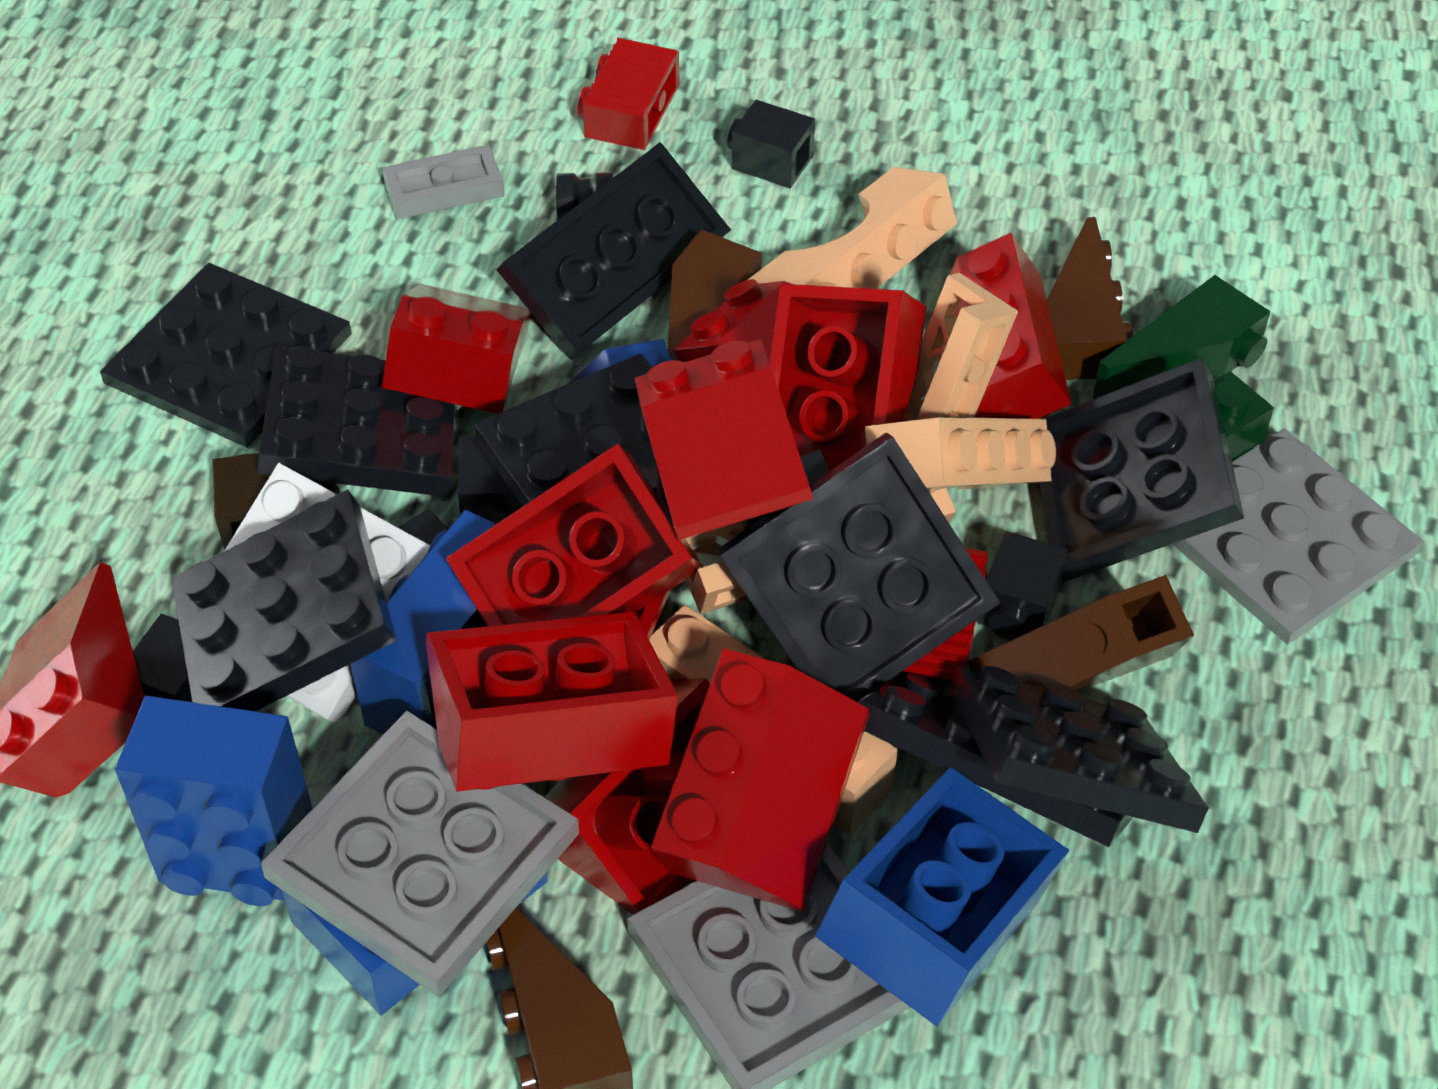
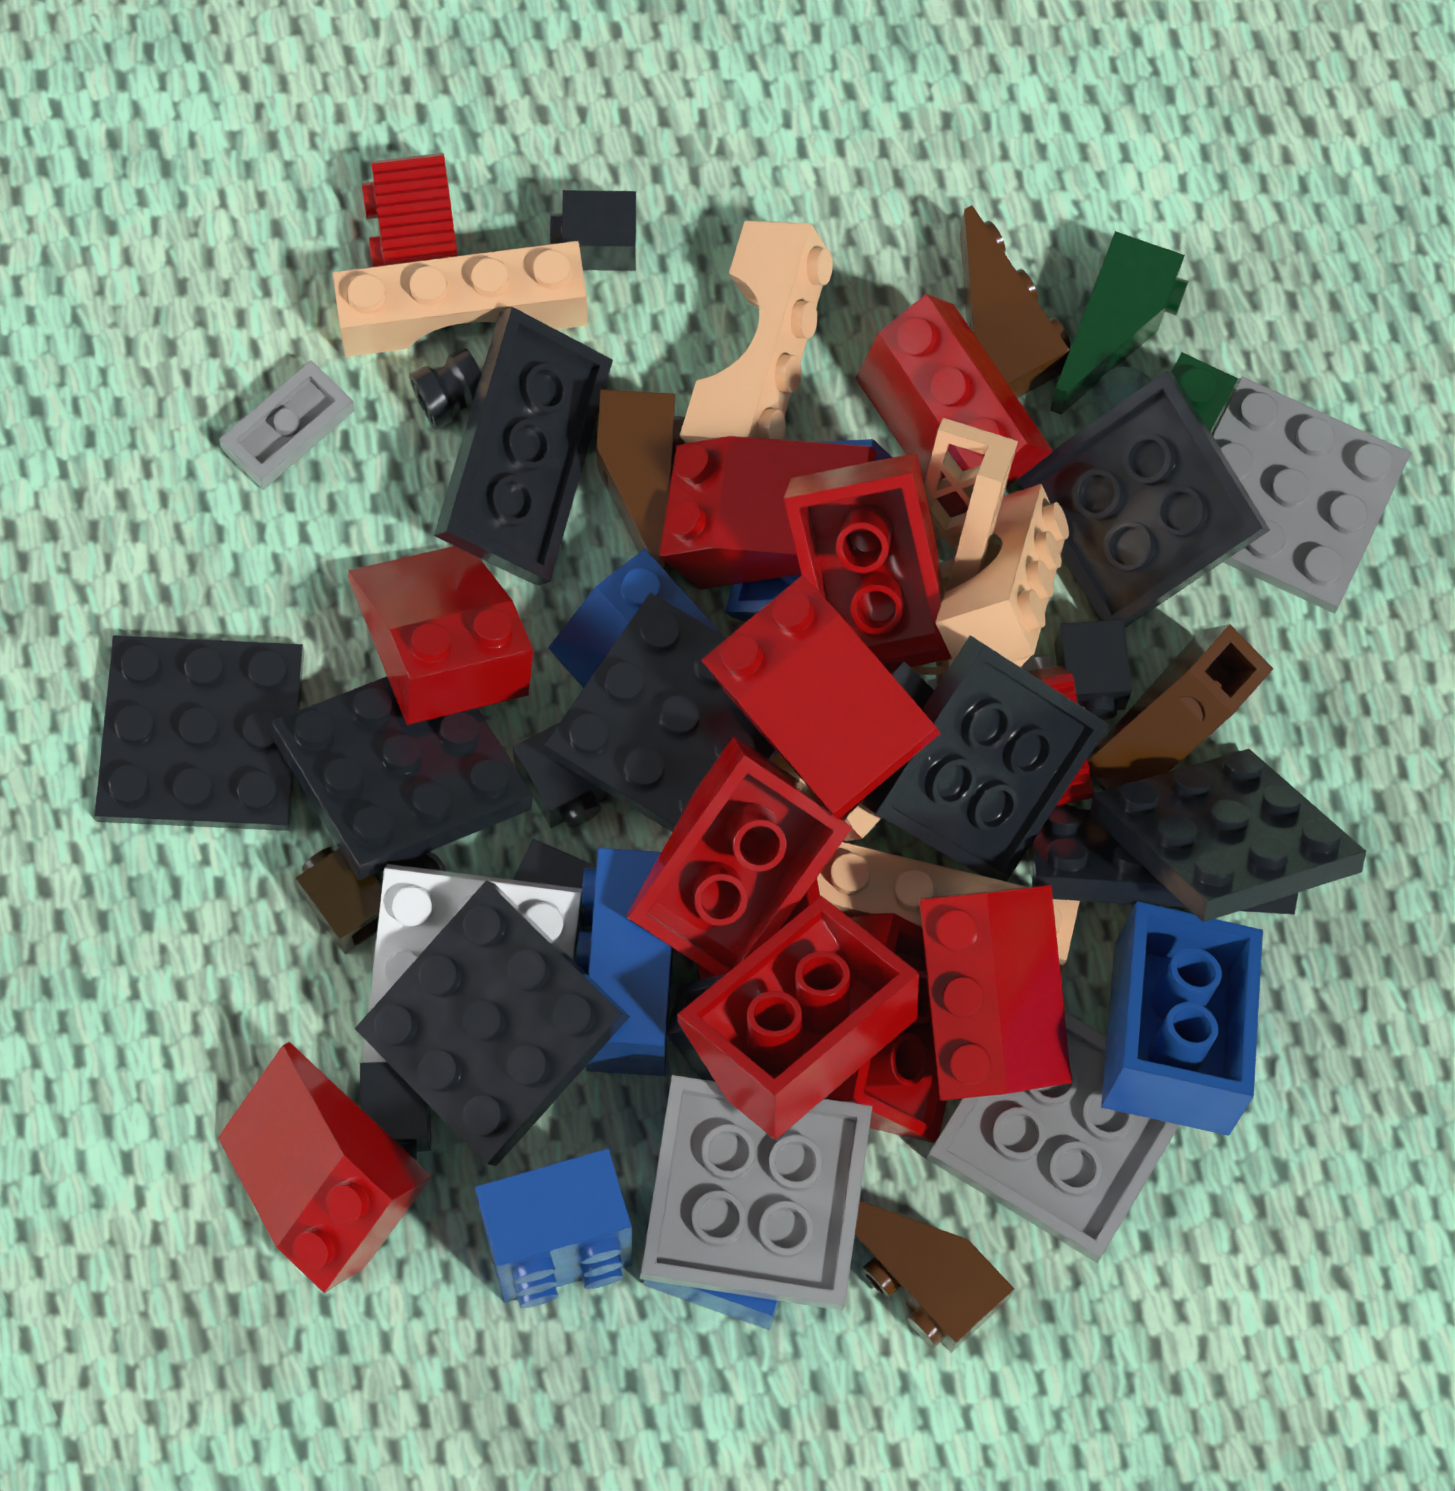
camera: 30 degrees left, 20 degrees up
(570, 128) = (402, 302): none -> light nougat arch

